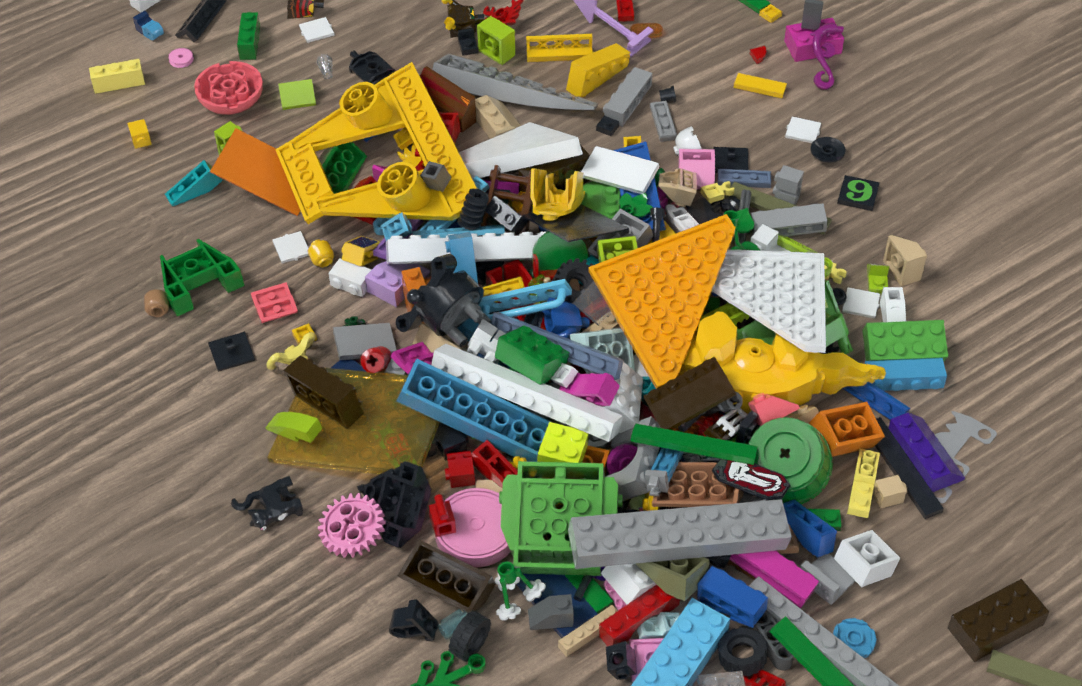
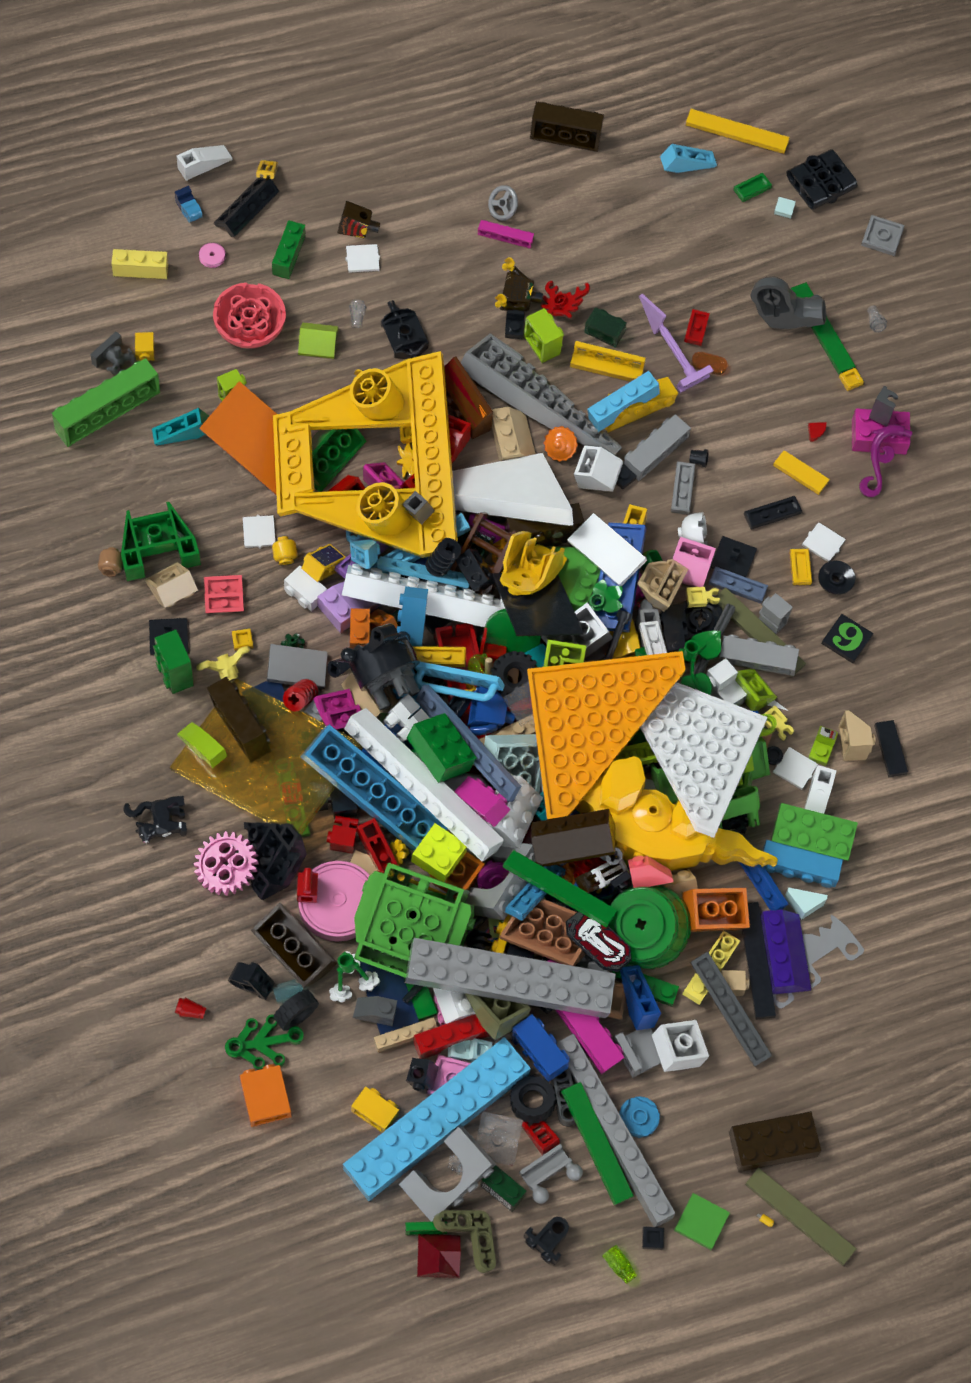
camera: 10 degrees right, 15 degrees up
(109, 143) = (111, 351): none -> dark grey piece
(115, 180) = (106, 402): none -> bright green brick
(222, 307) = (171, 585): none -> tan slope
(243, 362) = (173, 662): none -> green brick
(357, 670) = (189, 1008): none -> red cone
(543, 111) = (560, 443): none -> orange piece
(546, 24) = (605, 327): none -> clear green brick
(564, 375) = (464, 779): white plate -> none
(574, 73) = (639, 390): none -> medium azure arch
(584, 121) = (597, 469): none -> white slope
(656, 482) = (510, 917): light grey tile -> none
(749, 119) = (772, 512): none -> black tile
(792, 152) = (800, 567): none -> yellow tile
(900, 511) = (730, 1009): none -> dark grey plate
(923, 403) = (804, 901): none -> light aqua slope
(941, 266) = (891, 748): none -> black tile

